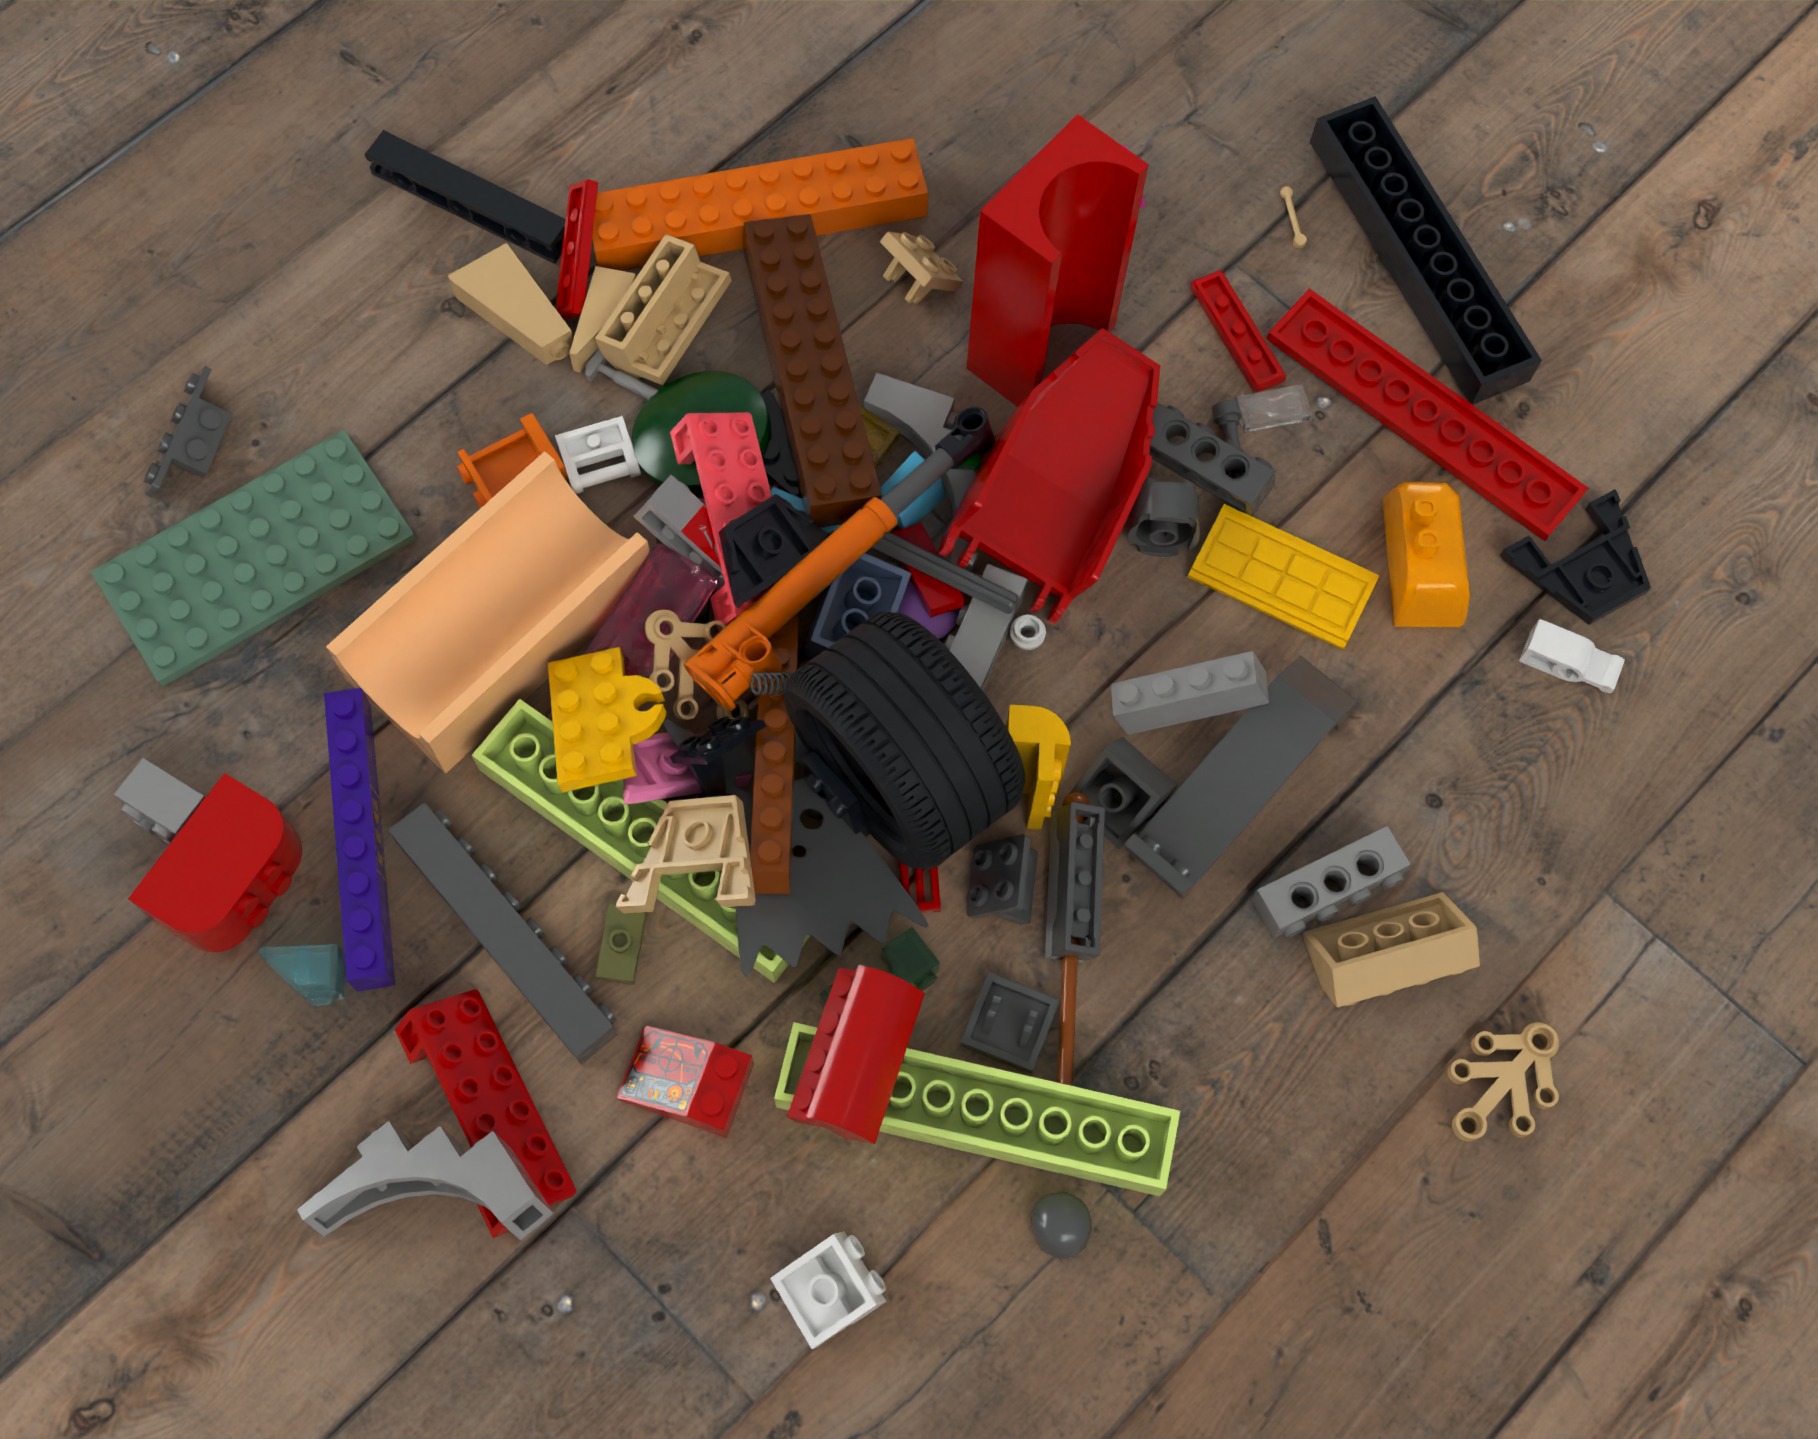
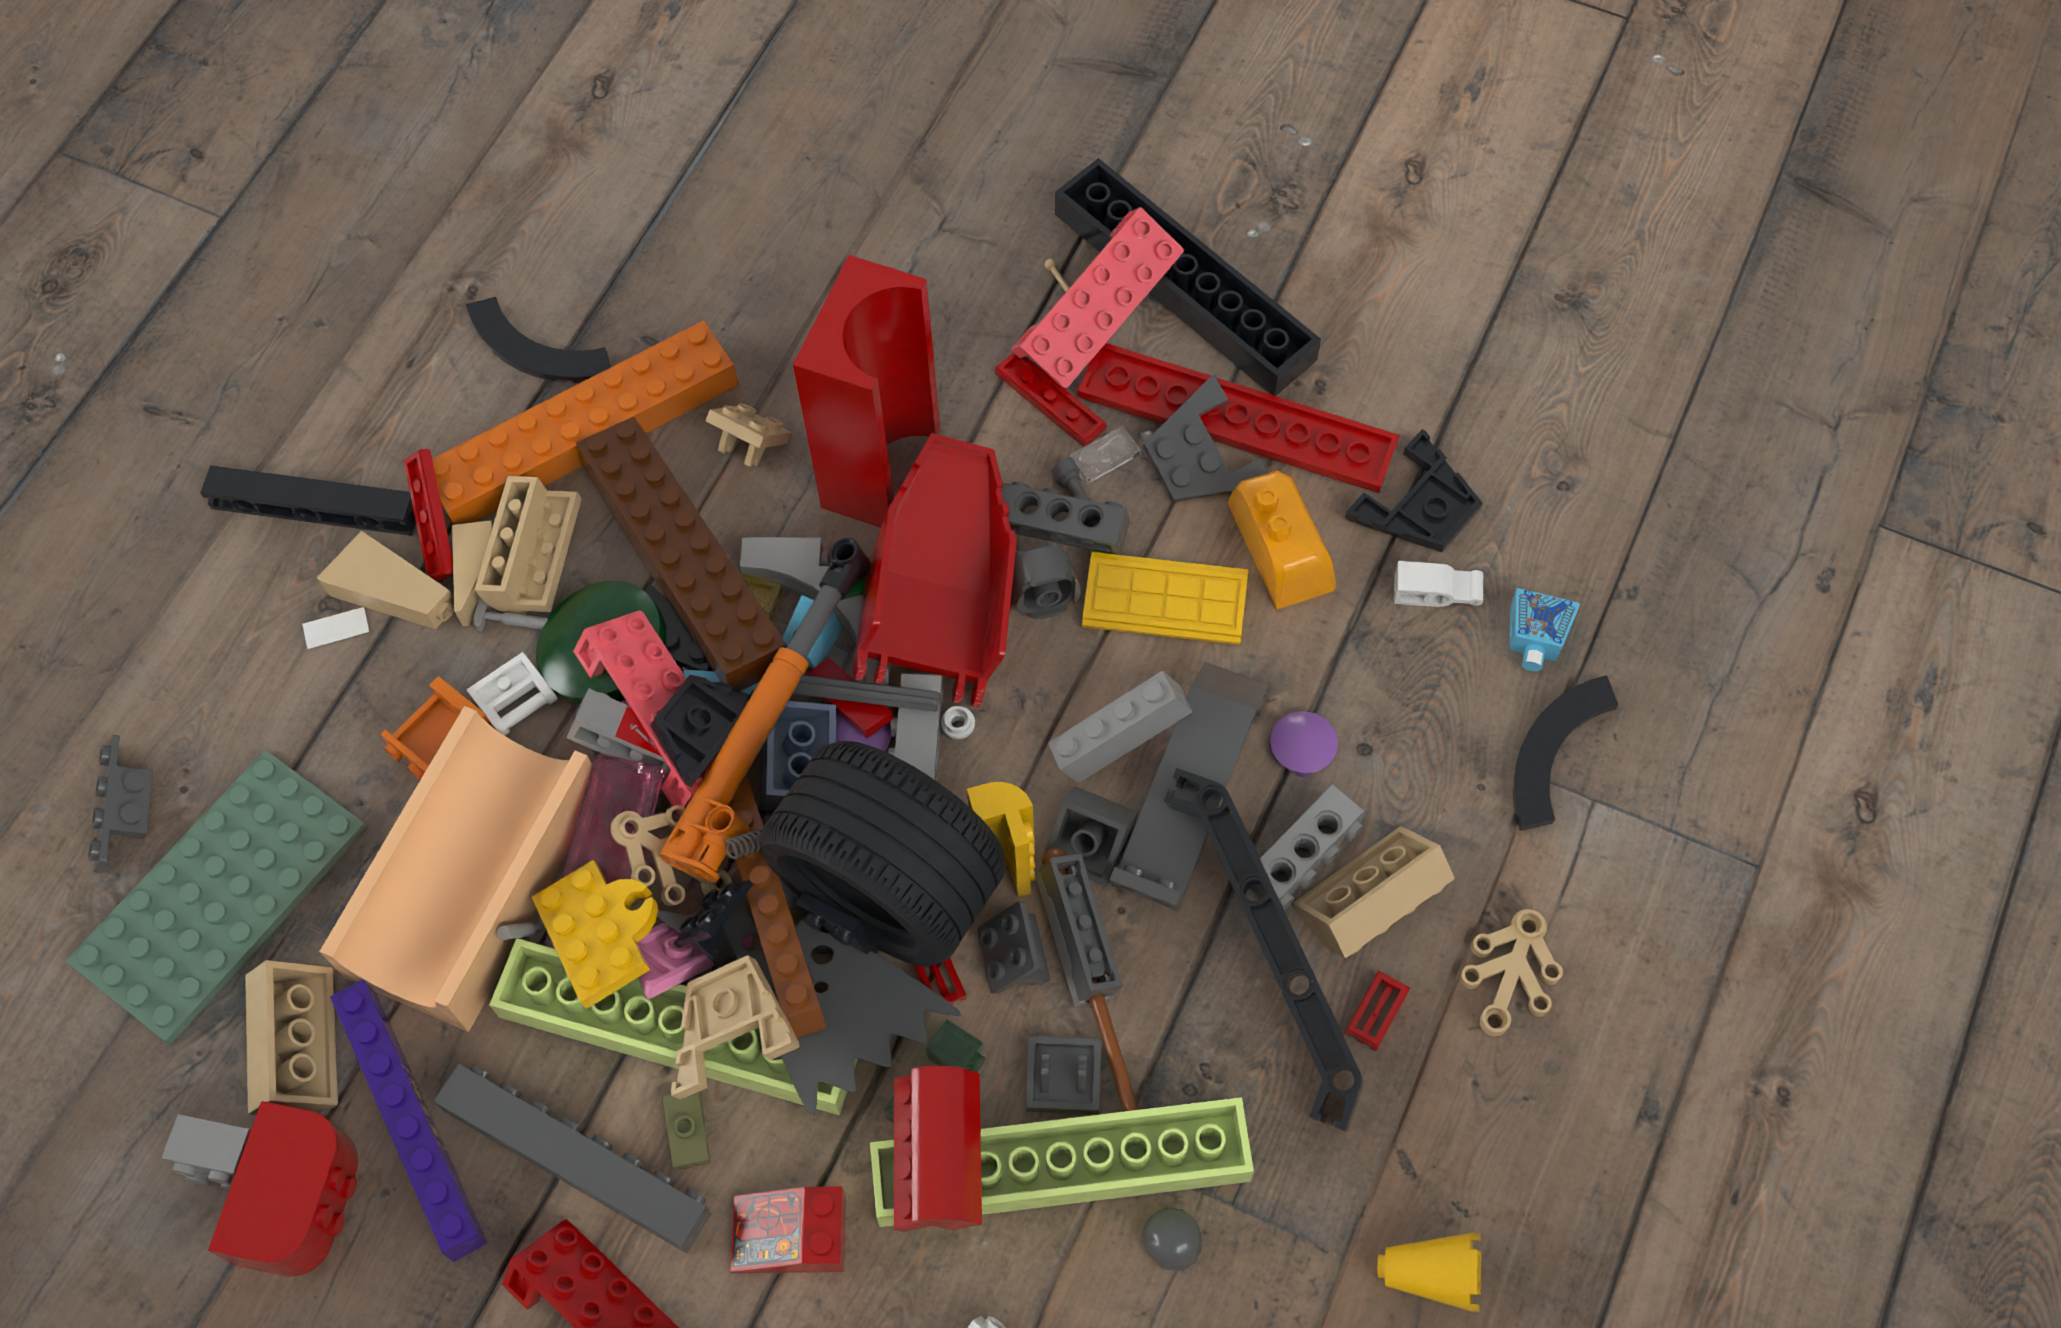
camera: 15 degrees left, 5 degrees down
(275, 719) = (290, 1036): none -> tan slope
(311, 970) = (403, 1257): clear light blue slope -> none
(451, 331) = (335, 628): none -> white sticker
(528, 692) = (536, 931): none -> light grey piece
(729, 119) = (529, 355): none -> black tile
(1272, 965) = (1276, 939): none -> black piece
(1317, 1354) = (1436, 1269): none -> yellow cone
(1326, 243) = (1100, 298): none -> coral bracket
(1326, 1092) = (1363, 1036): none -> red tile
(1358, 434) = (1187, 455): none -> dark grey wing
(1373, 772) = (1303, 742): none -> medium lavender dish
(1623, 857) = (1543, 741): none -> black tile
(1664, 736) = (1539, 626): none -> medium azure torso

